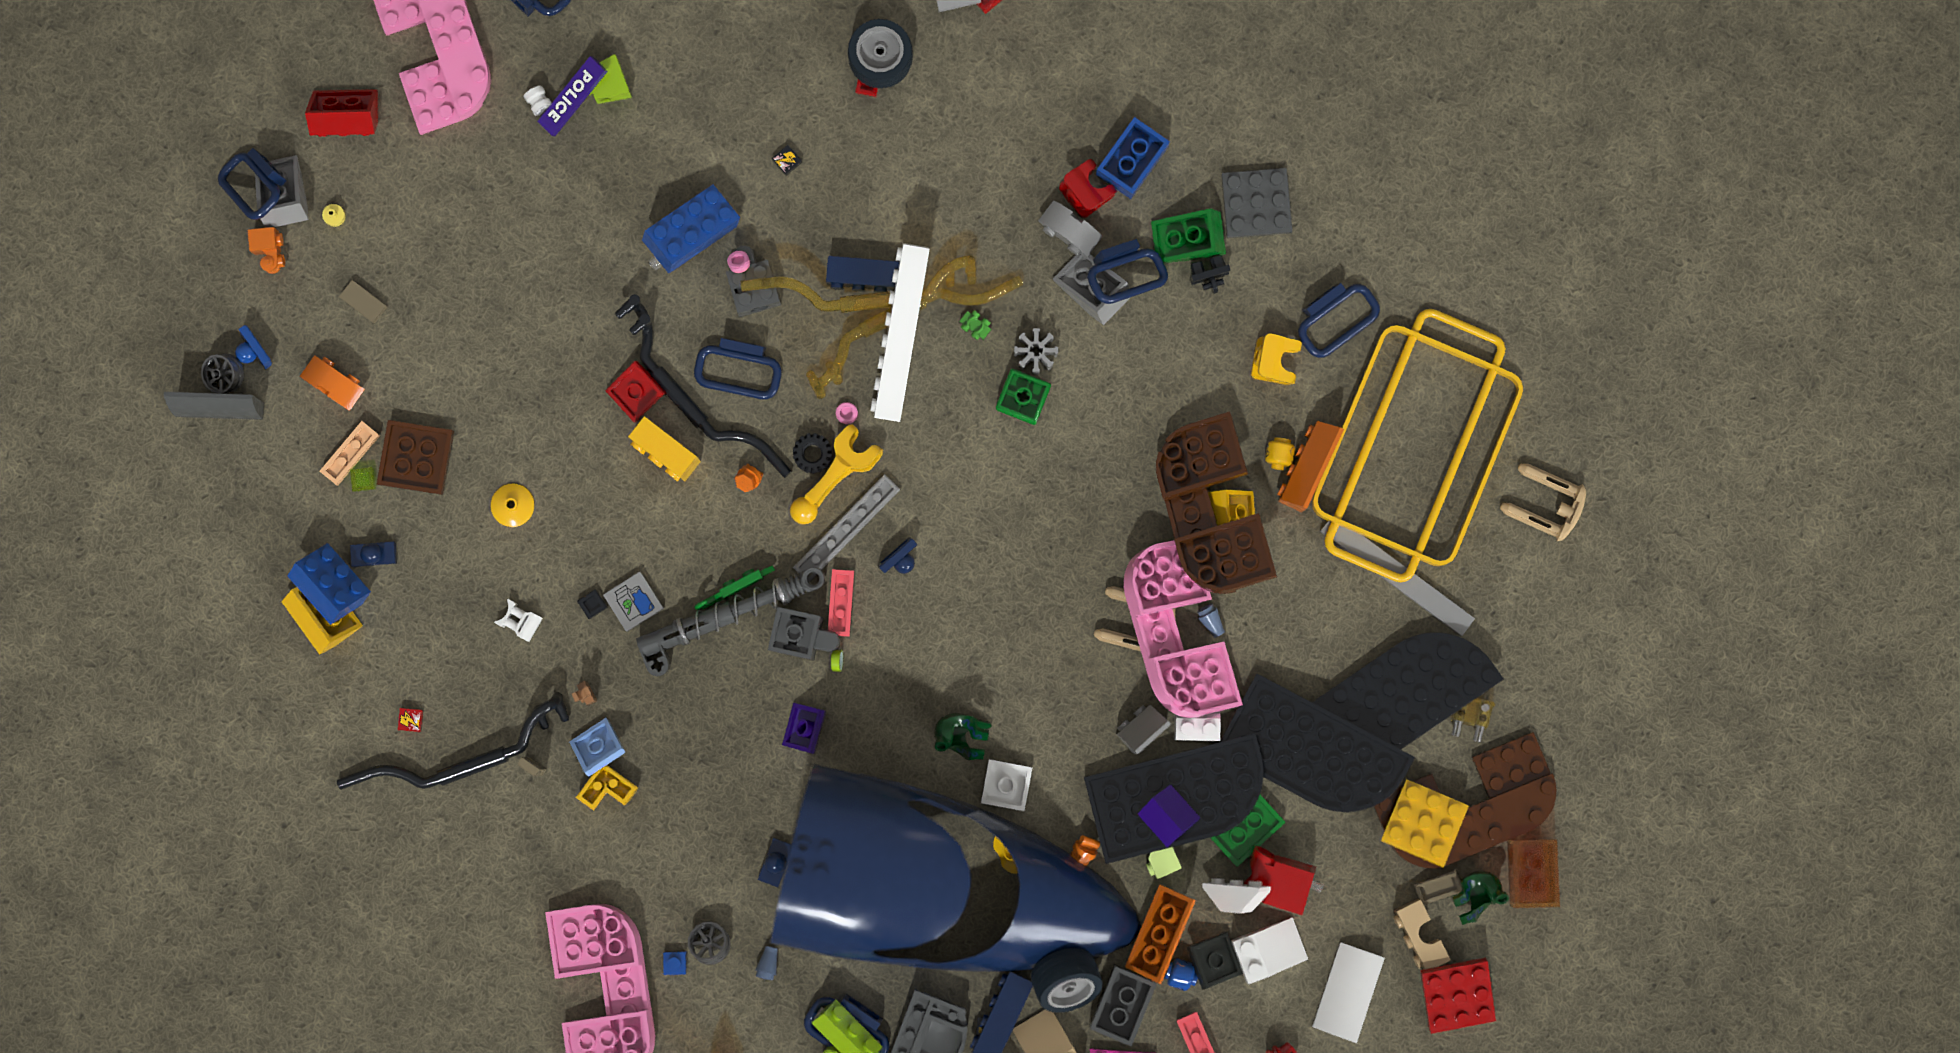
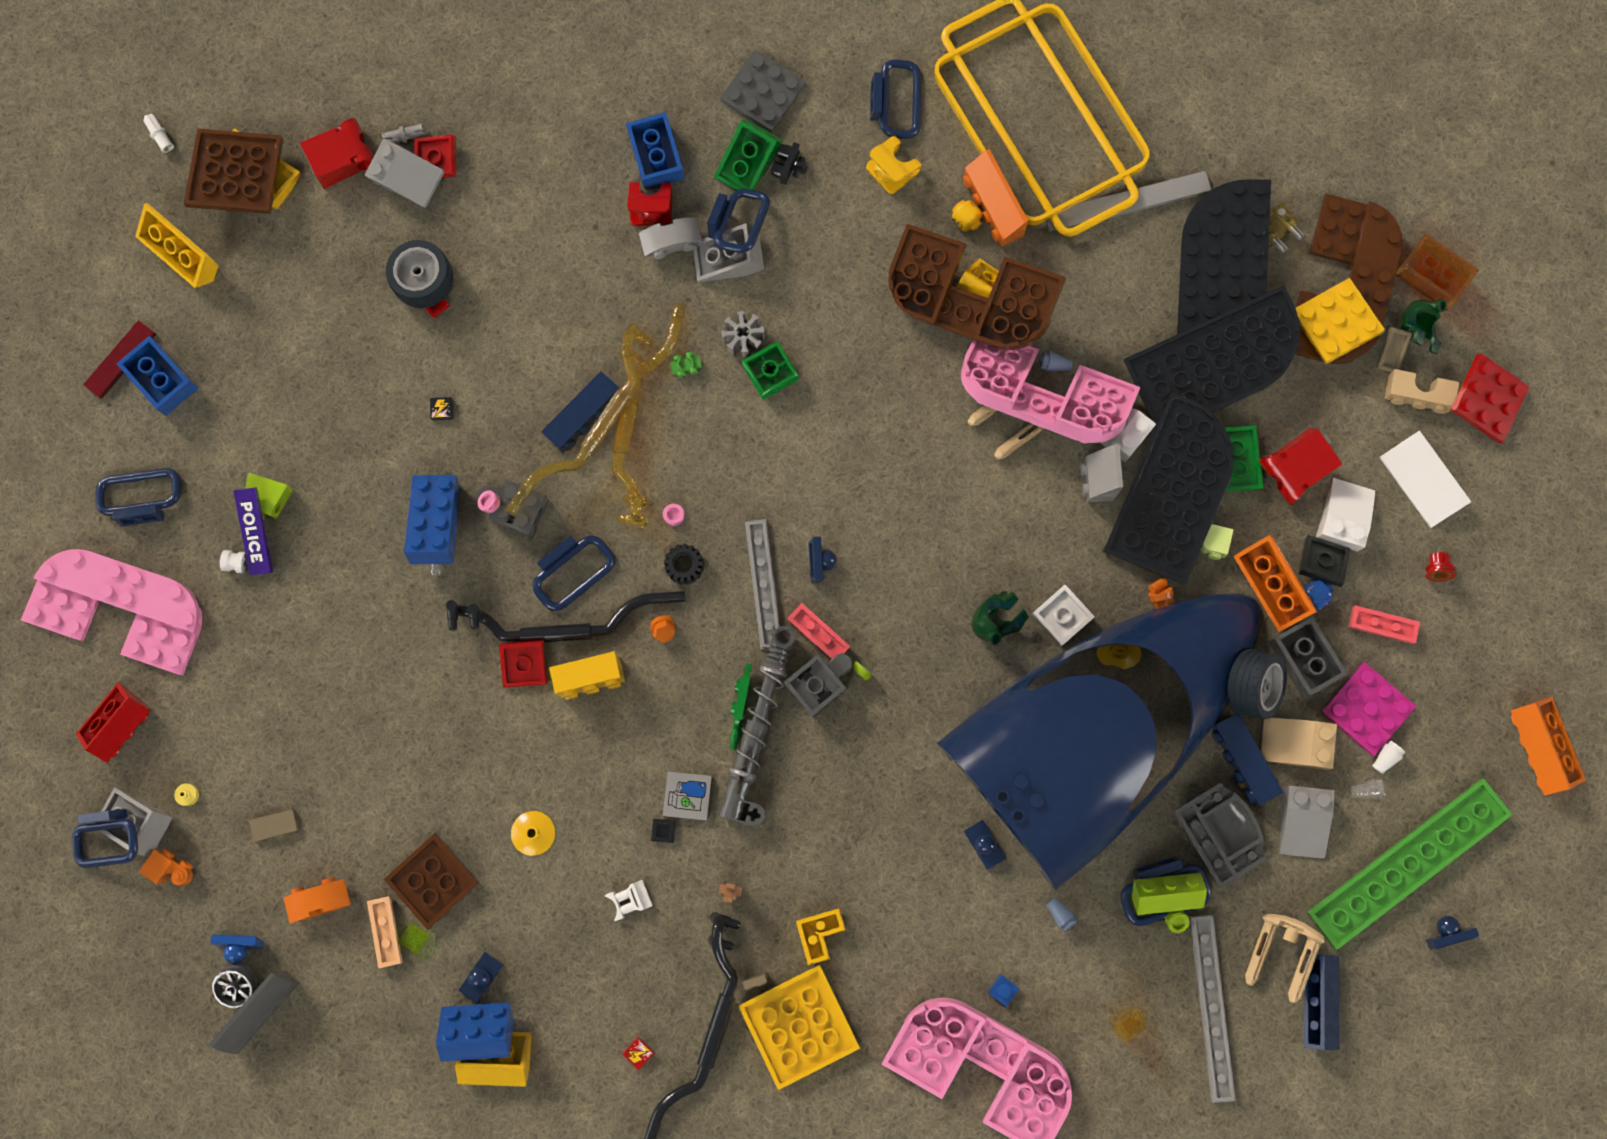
camera: 45 degrees left, 5 degrees down
(524, 827) = (799, 1027): none -> yellow plate
(597, 747) = (781, 915): light blue plate -> none
(709, 943) = (1009, 948): flat silver wheel -> none
(804, 728) = (895, 738): dark purple slope -> none
(805, 509) = (722, 603): yellow piece -> none
(901, 331) = (645, 419): white brick -> none
(1168, 815) = (1186, 506): dark purple slope -> none
(1235, 896) = (1287, 503): white slope -> none
(1571, 513) = (1179, 43): tan piece -> none

